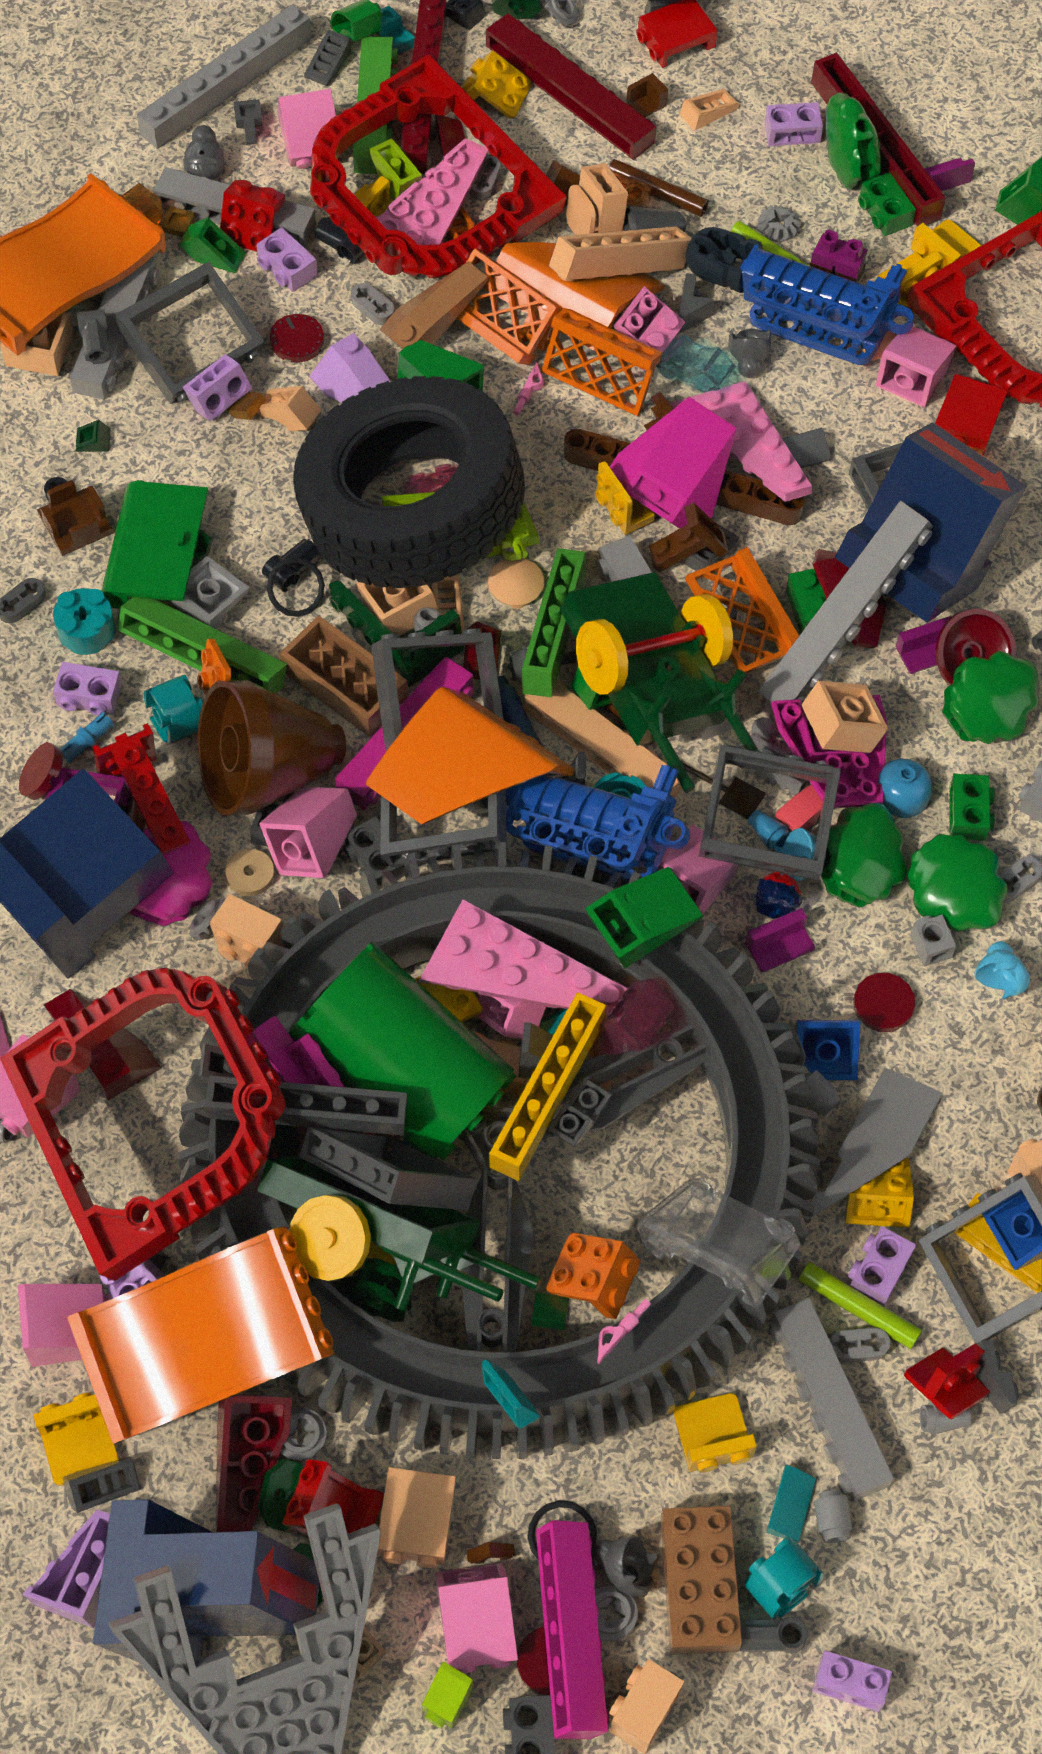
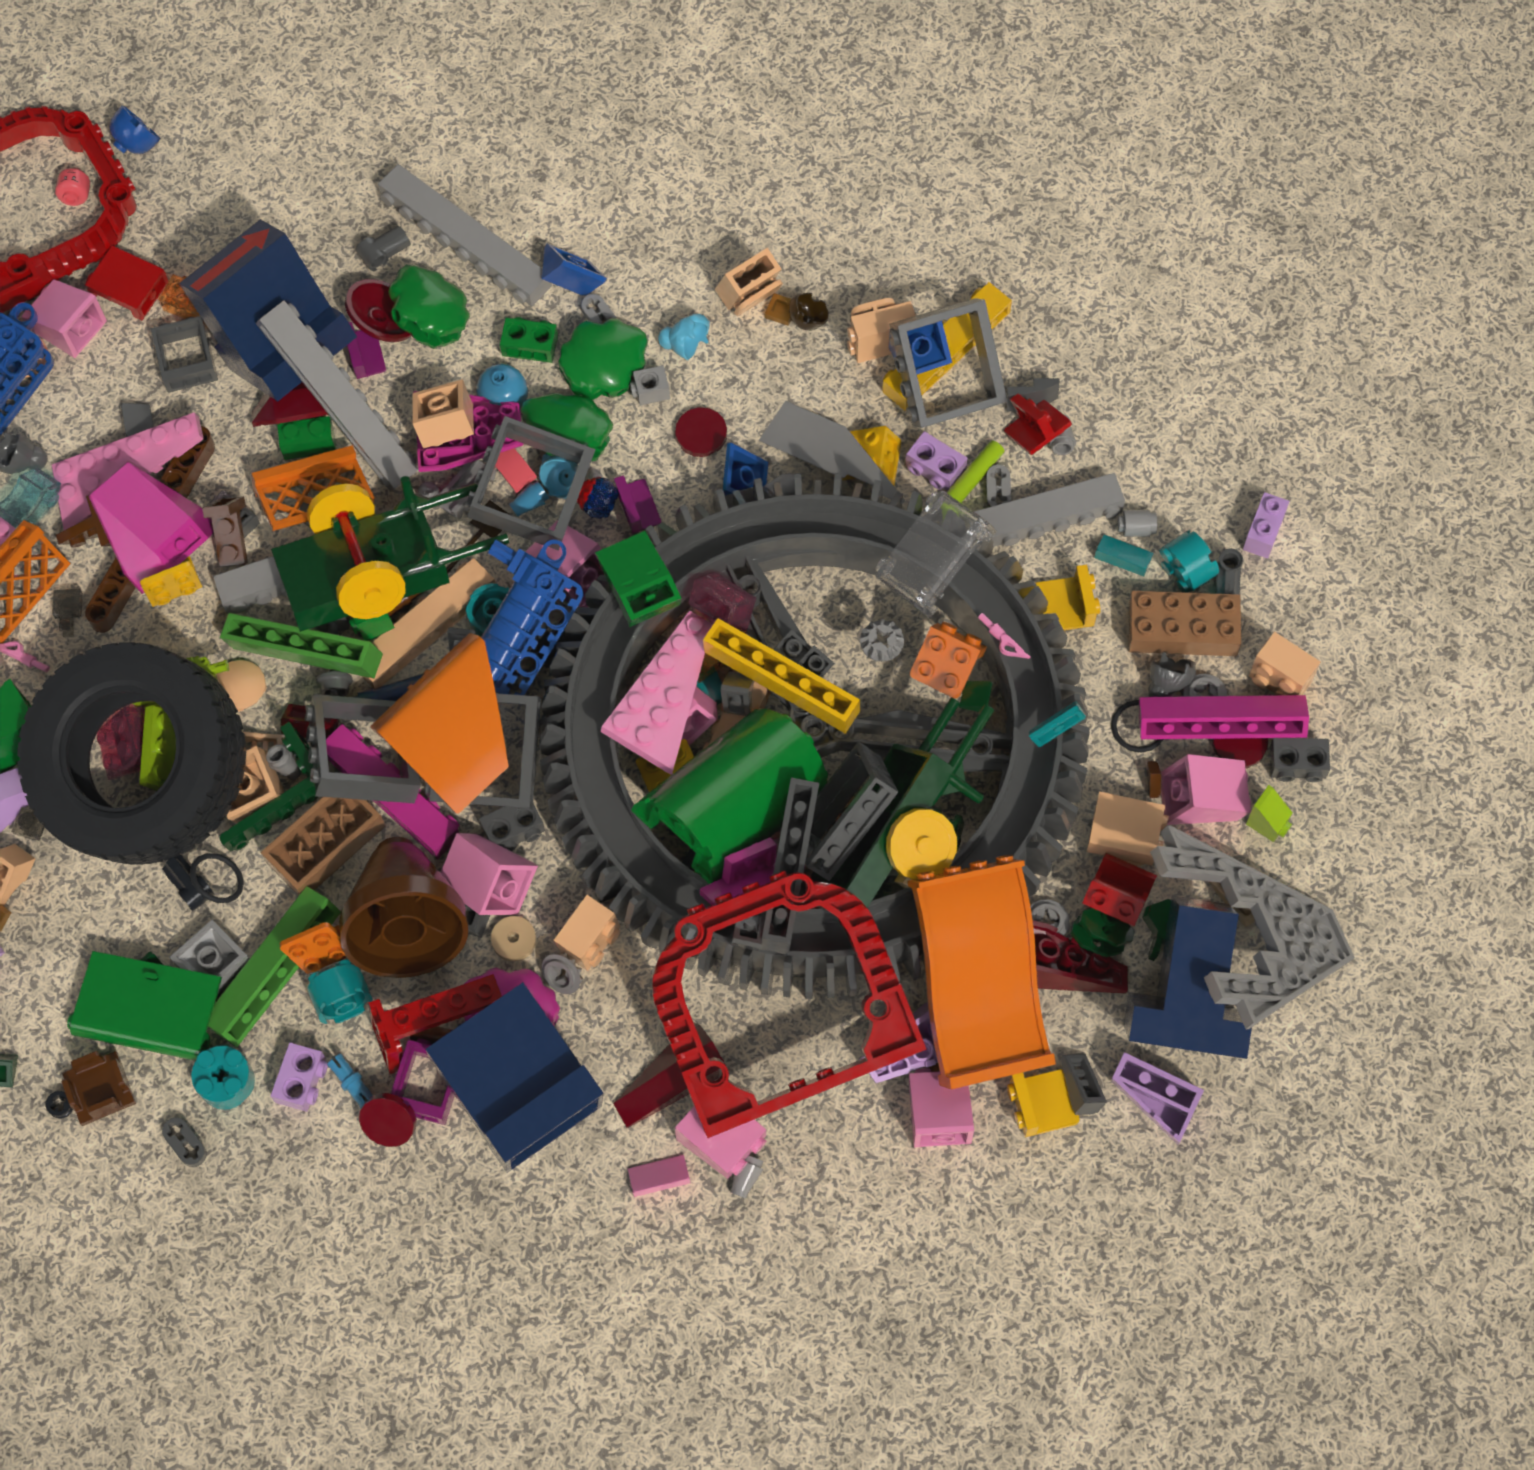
camera: 80 degrees left, 5 degrees up
(584, 416) = (67, 606): none -> clear smoke plate
(610, 1212) = (878, 651): none -> light grey gear

